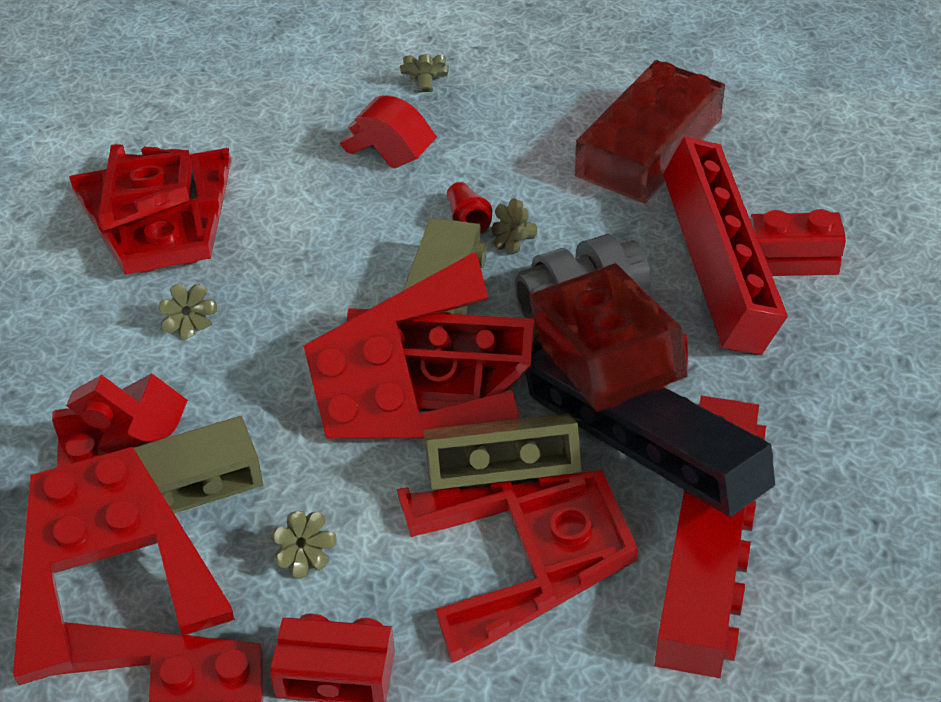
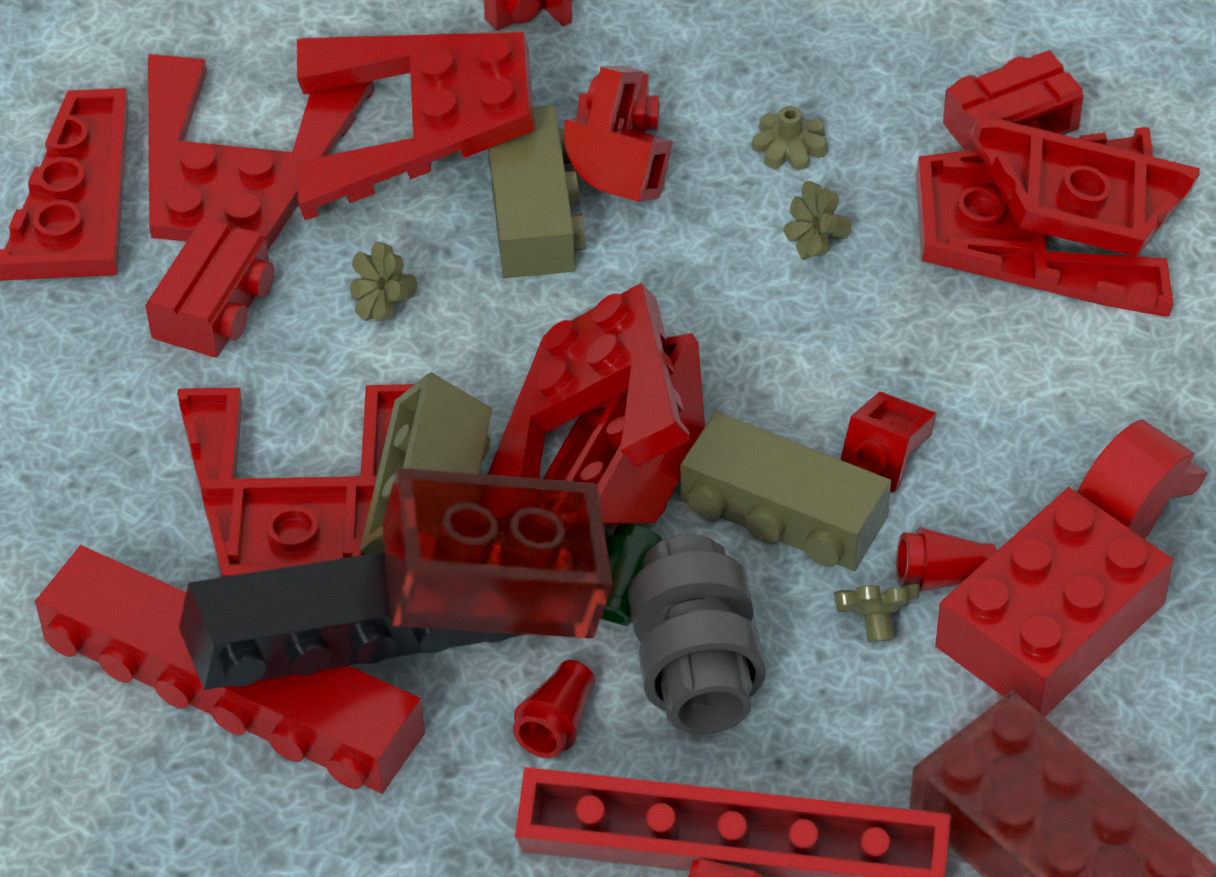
camera: 105 degrees right, 5 degrees up
(57, 234) = (1022, 92): none -> red brick
(90, 349) = (789, 139): none -> olive plant
(376, 241) = (885, 435): none -> red bracket
(490, 152) = (1053, 602): none -> red brick

